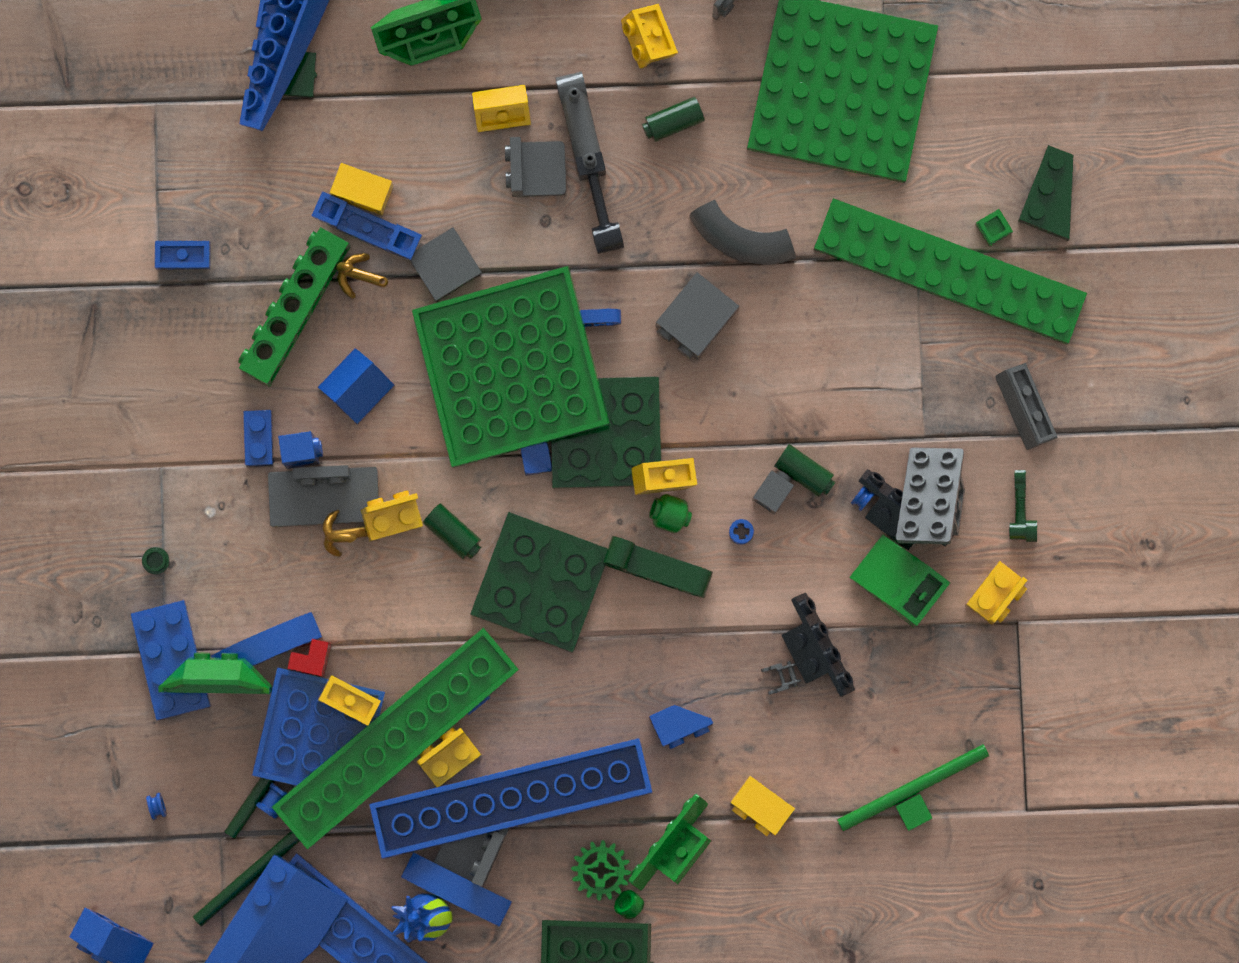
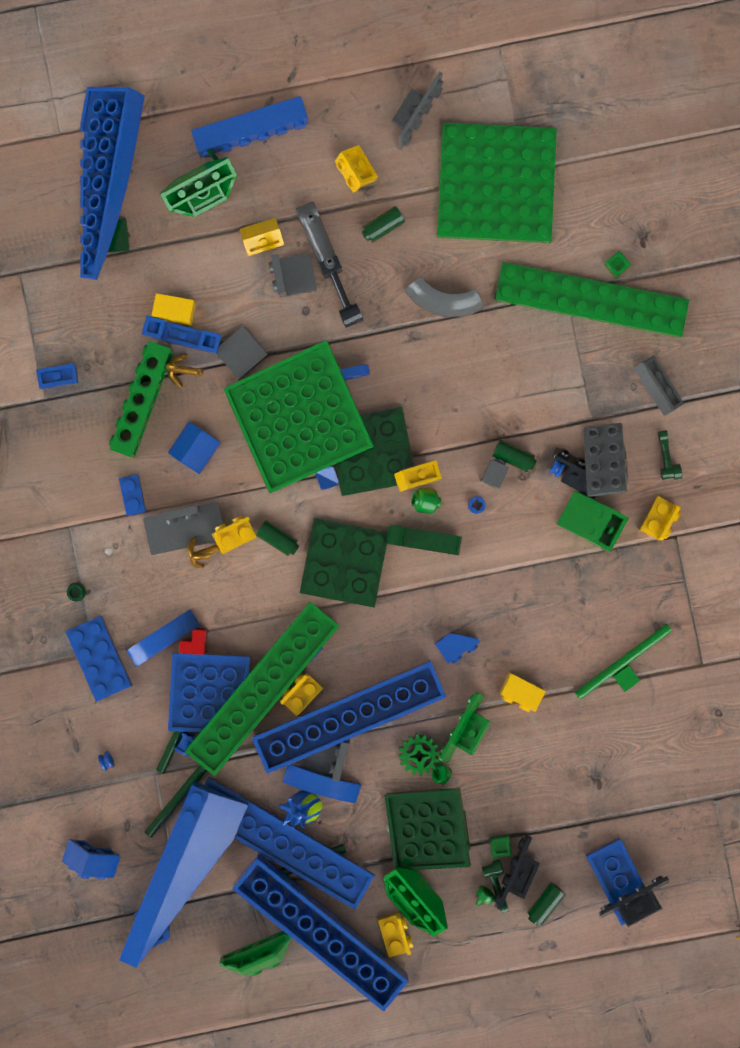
camera: 15 degrees left, 5 degrees up
(216, 675) = (131, 666): green wedge -> none
(300, 449) = (161, 499): blue brick -> none
(349, 700) = (225, 668): yellow panel -> none
(696, 317) = (421, 360): dark grey brick -> none
(784, 686) = (523, 606): dark grey piece -> none
(813, 648) = (539, 577): black bracket -> none
(1051, 195) = (653, 236): dark green wing -> none

